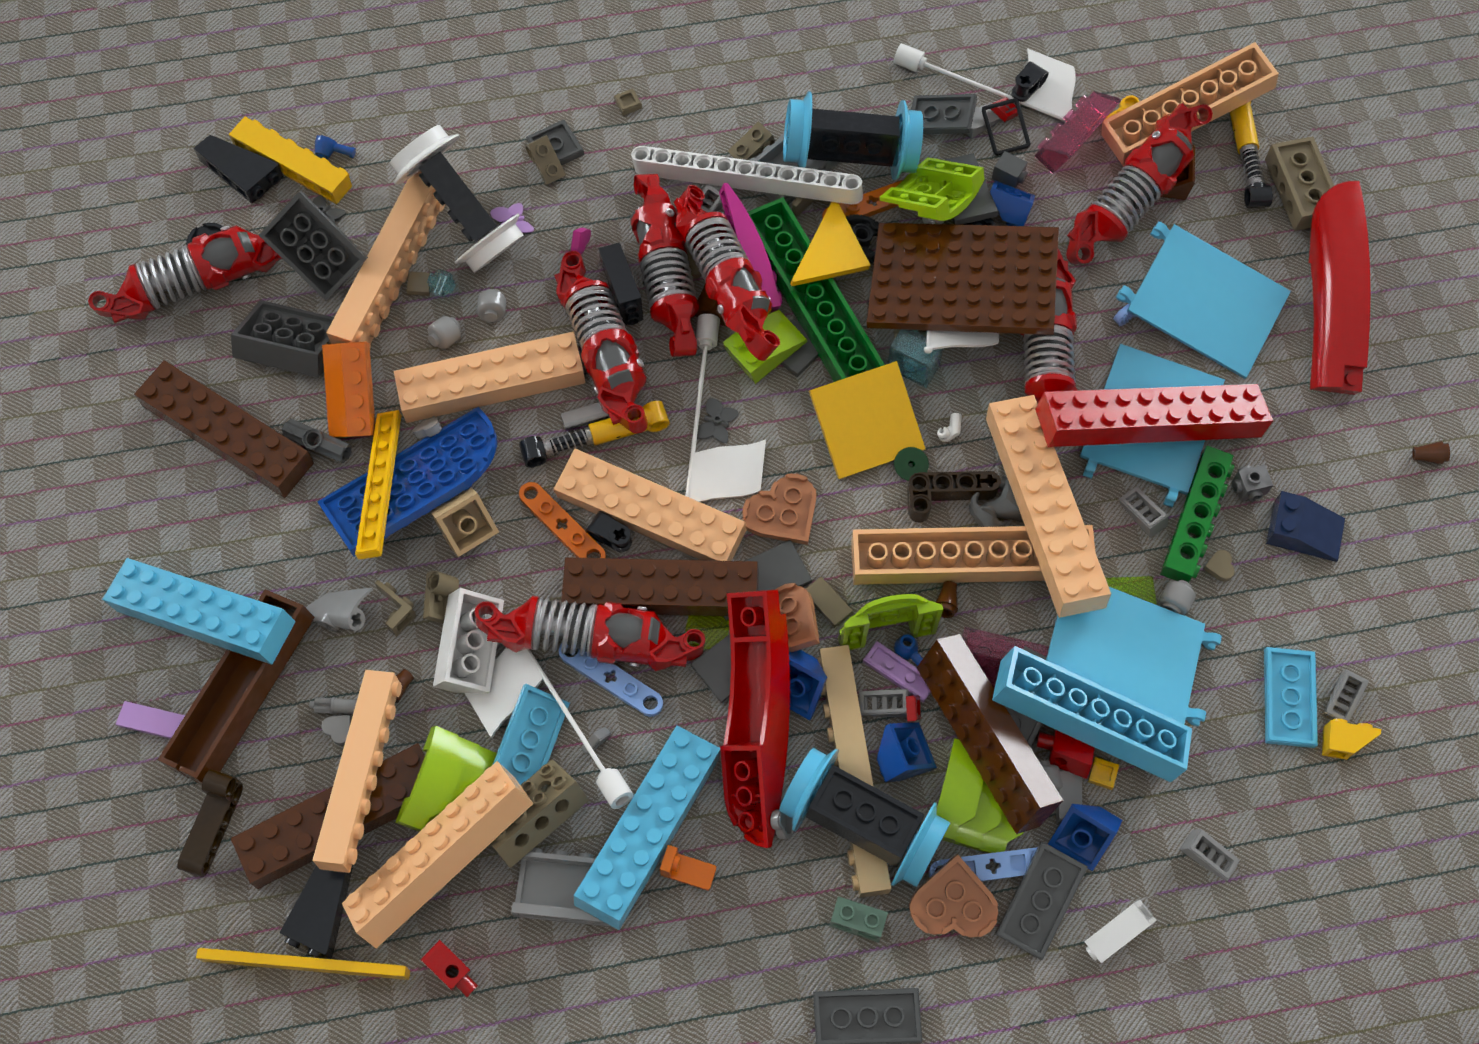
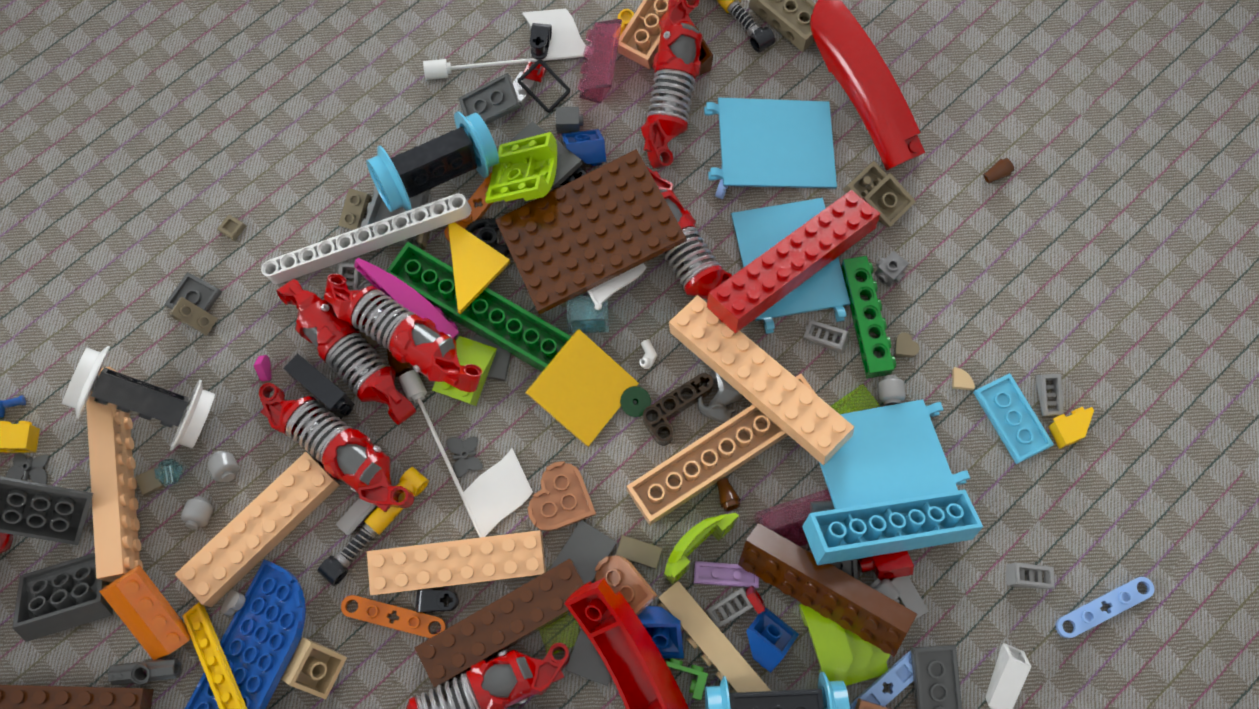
camera: 30 degrees left, 5 degrees up
(502, 214) = (191, 378): lavender piece -> none
(813, 737) = (697, 686): none -> bright green bracket
(908, 652) = (721, 557): blue bar -> none
(1085, 833) = (939, 618): blue slope -> none
(1103, 773) = (921, 560): yellow tile -> none
(1259, 630) = (961, 380): none -> tan tile
(1288, 930) = (1118, 601): none -> light blue piece
(1289, 406) = (881, 192): none -> dark tan slope
(1305, 527) = (946, 280): dark blue slope -> none

